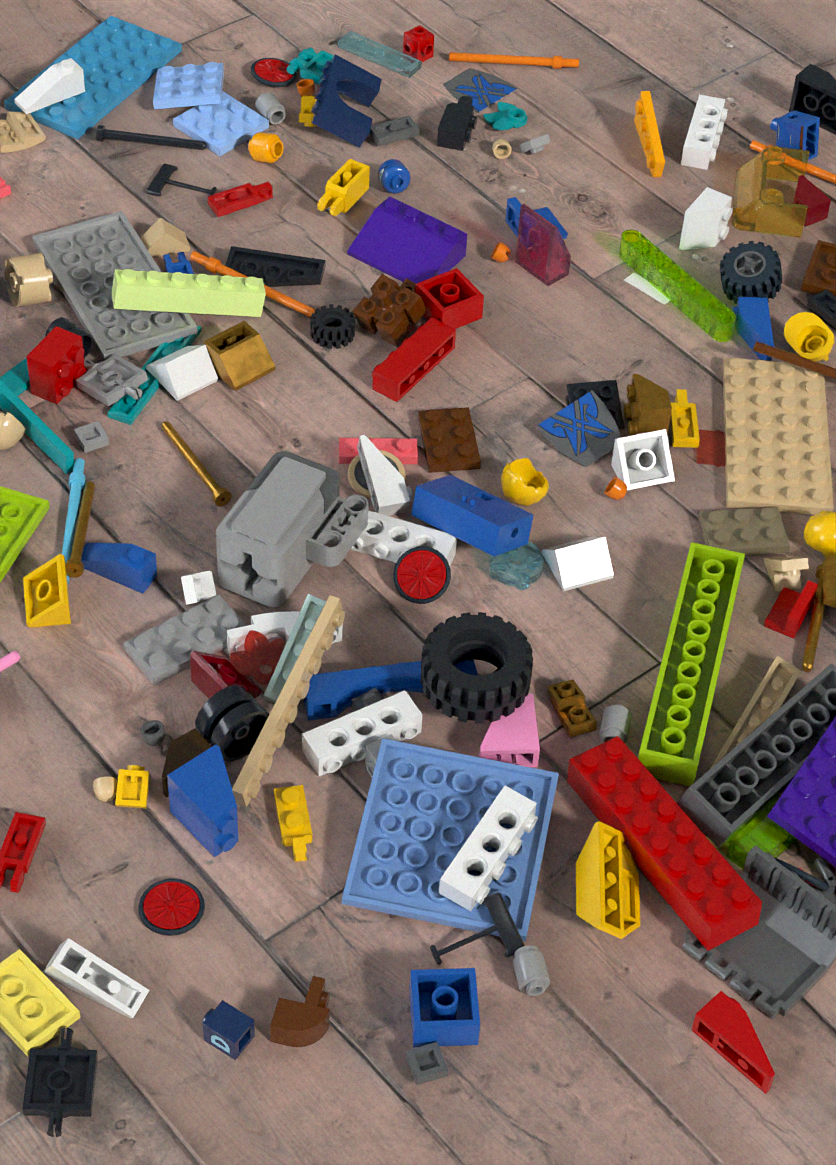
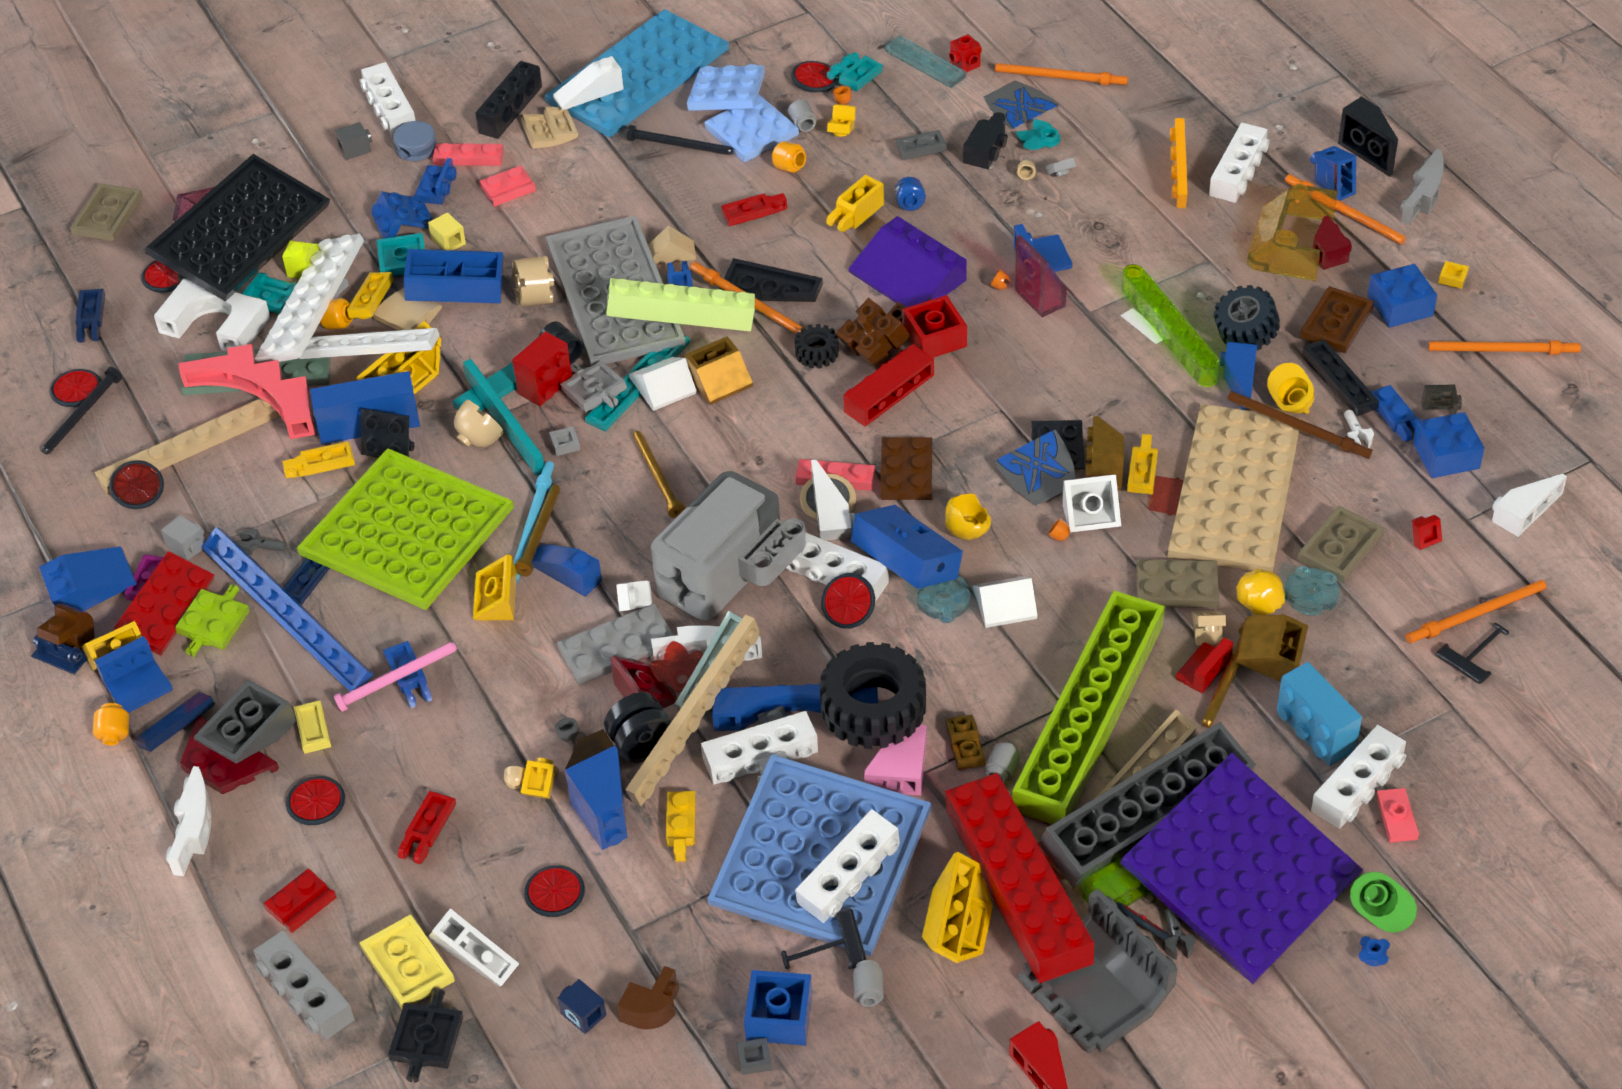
camera: 15 degrees right, 0 degrees up
(162, 178) = (683, 183): black piece -> none
(332, 112) = (860, 125): dark blue arch -> none
(706, 220) = (1213, 259): white slope -> none

